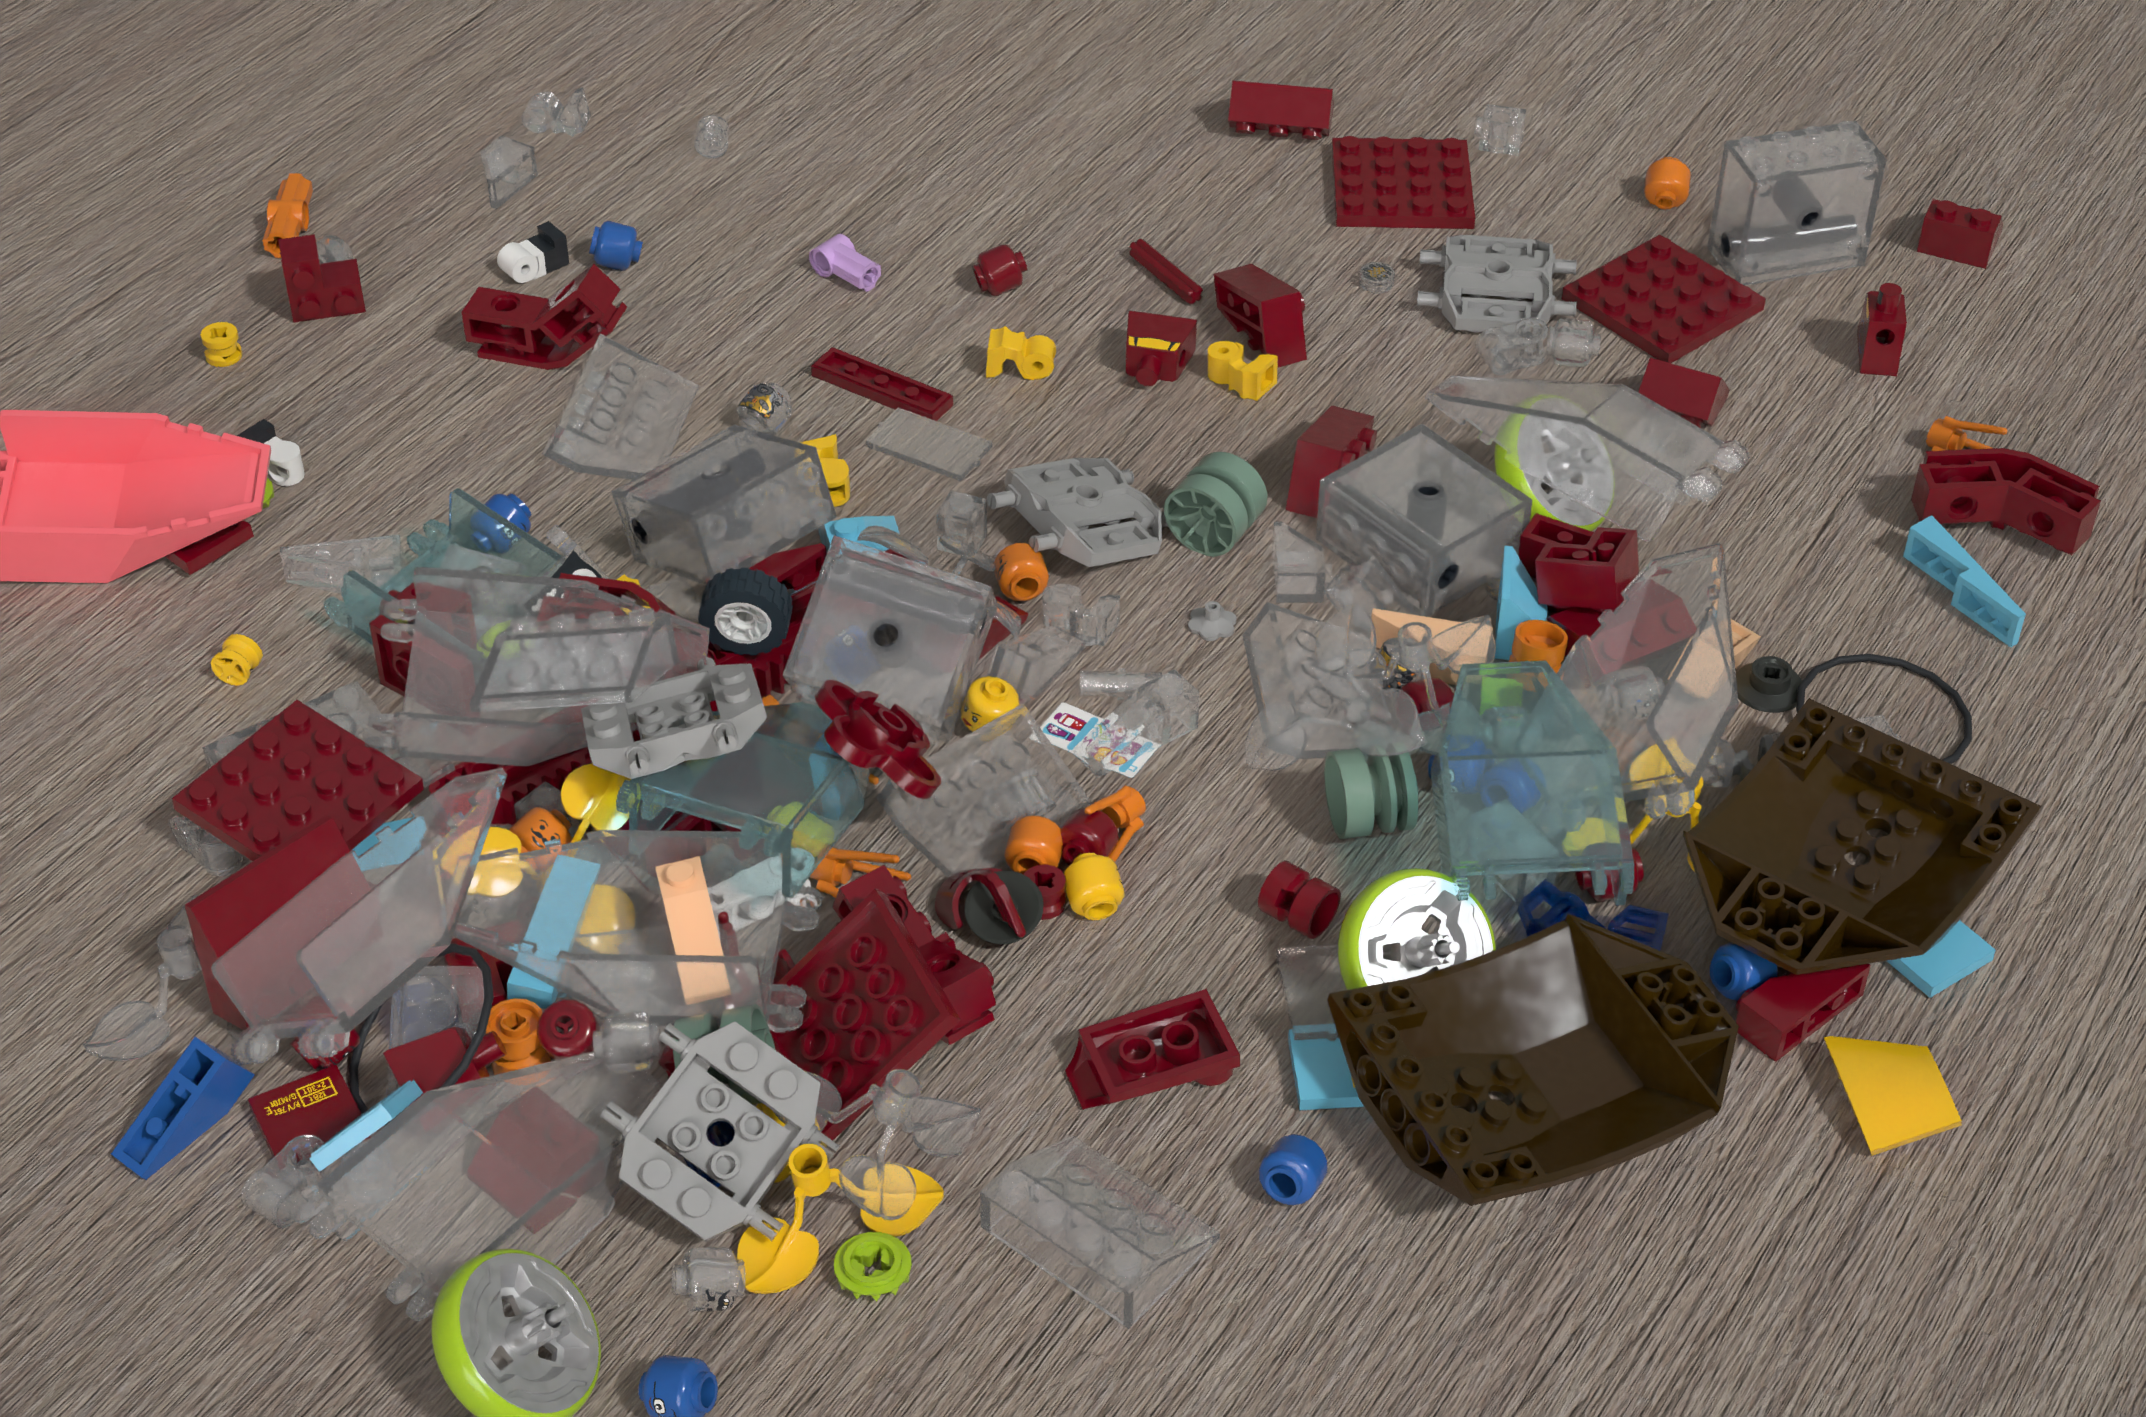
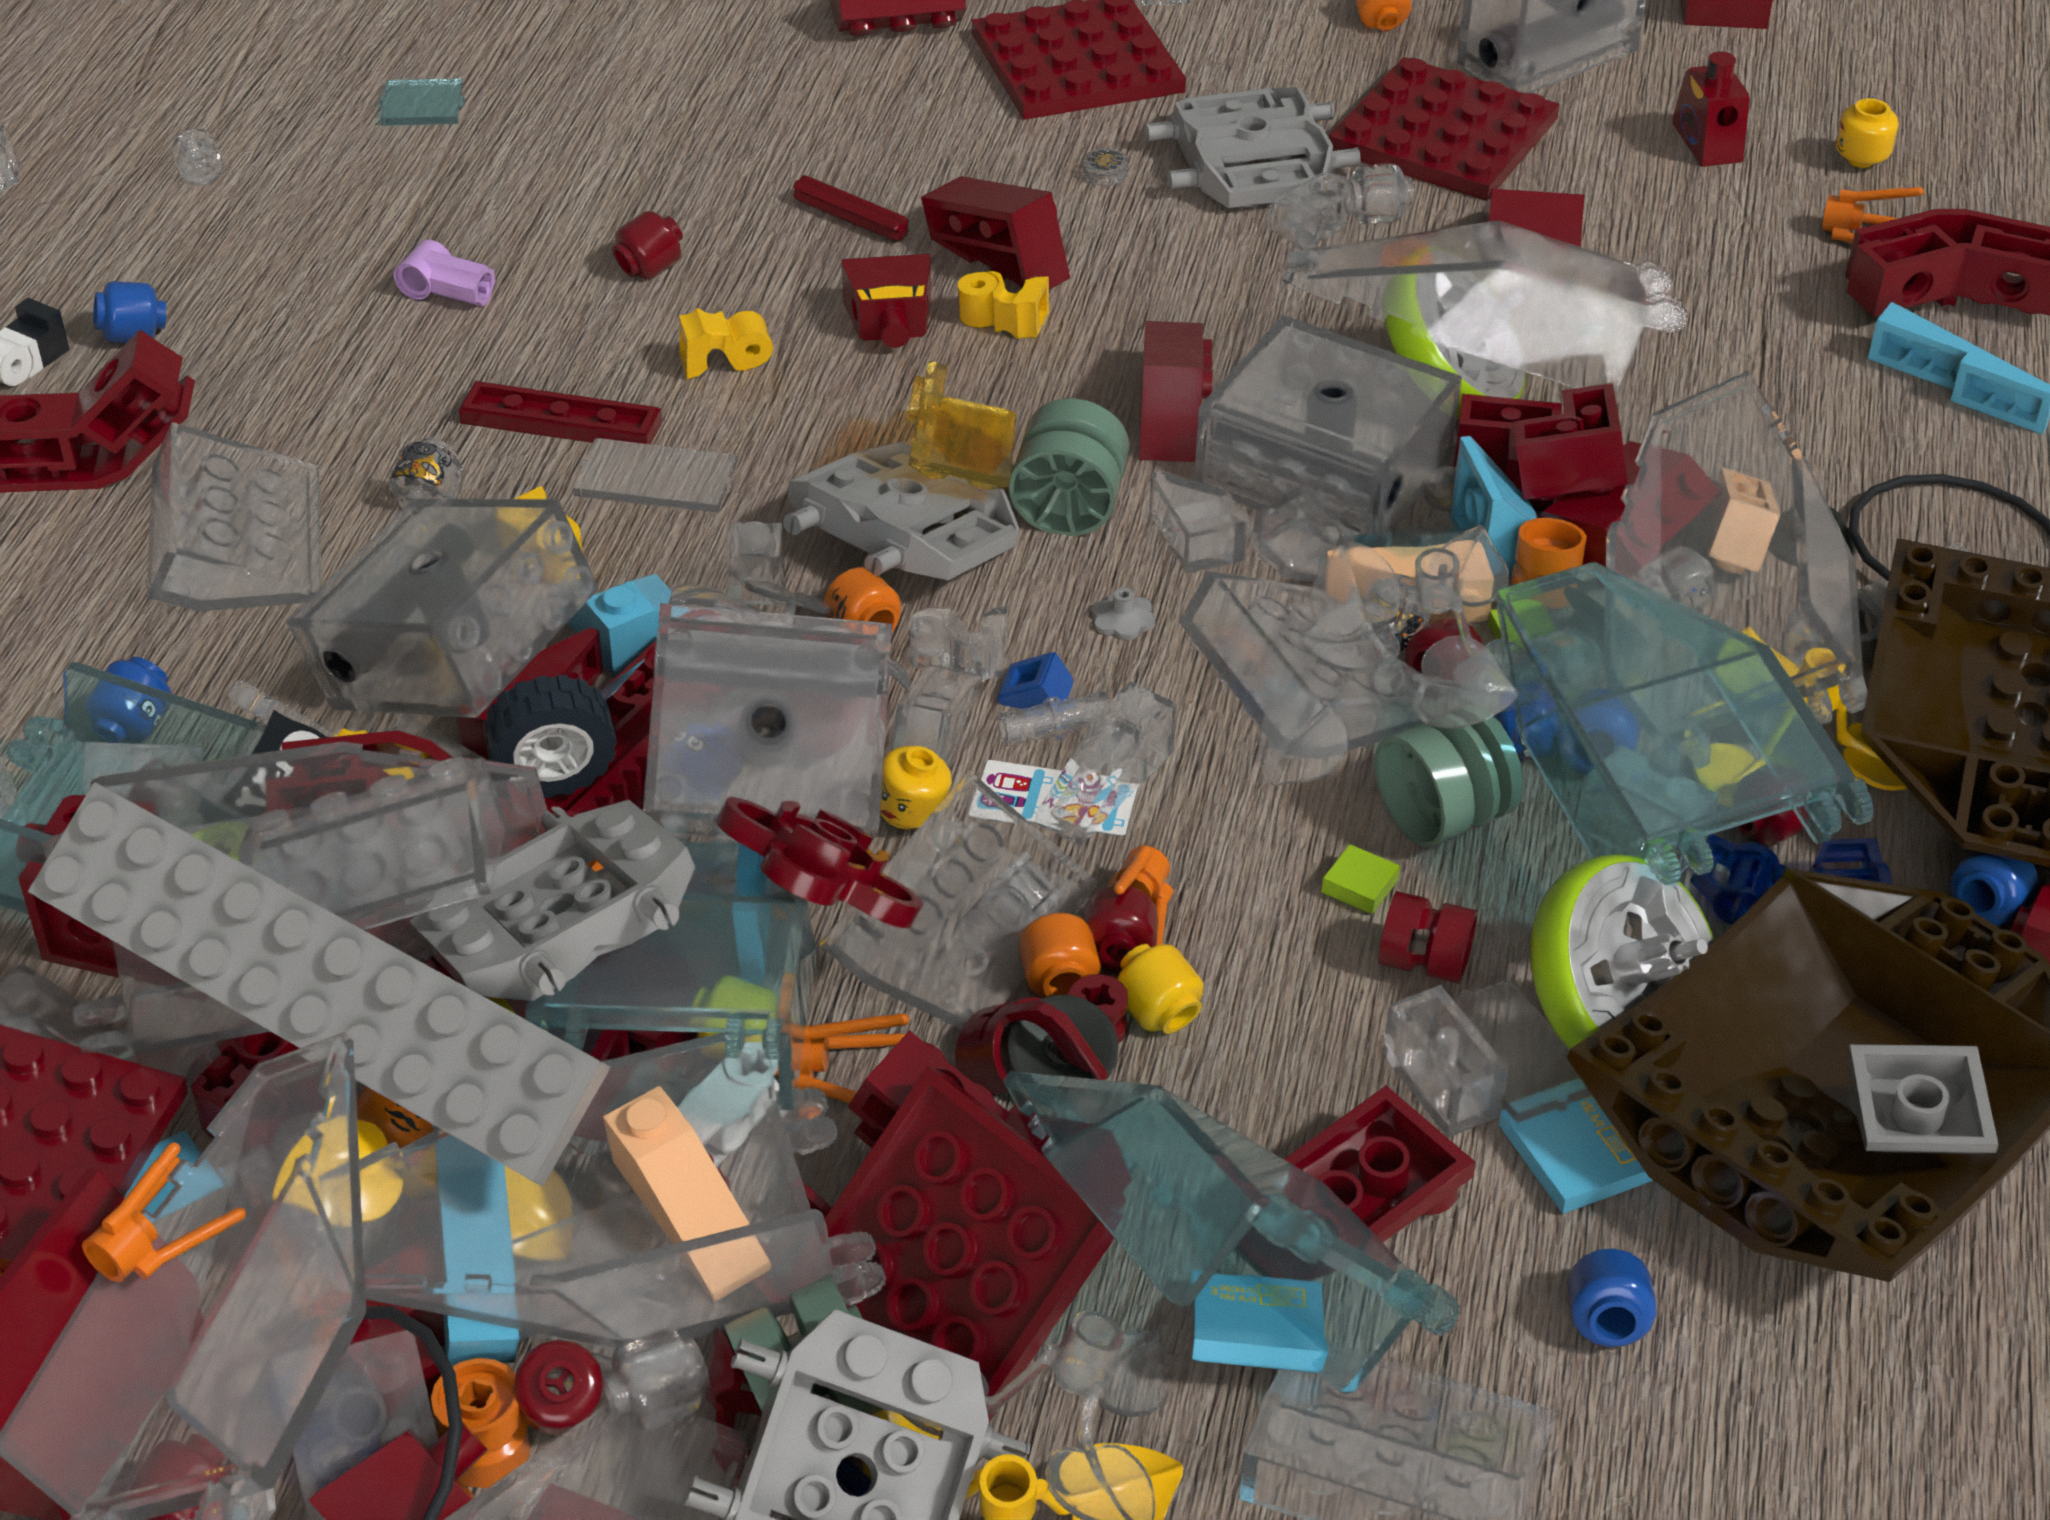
camera: 20 degrees left, 0 degrees up
(330, 860) = (127, 1236): none -> orange plant
(503, 726) = (317, 976): none -> light grey plate
(893, 124) = (422, 102): none -> clear light blue piece
(987, 990) = (1202, 1196): none -> clear light blue windscreen
(1044, 1119) = (1244, 1330): none -> medium azure tile
(1123, 653) = (1034, 680): none -> blue slope
(1144, 460) = (959, 435): none -> clear yellow bracket
(1260, 984) = (1444, 1061): none -> clear brick
(1280, 845) = (1360, 879): none -> lime tile
(1444, 612) = (1410, 536): none -> clear light blue piece
(1574, 1095) = (1920, 1099): none -> light grey slope
(2003, 373) = (1867, 132): none -> yellow head

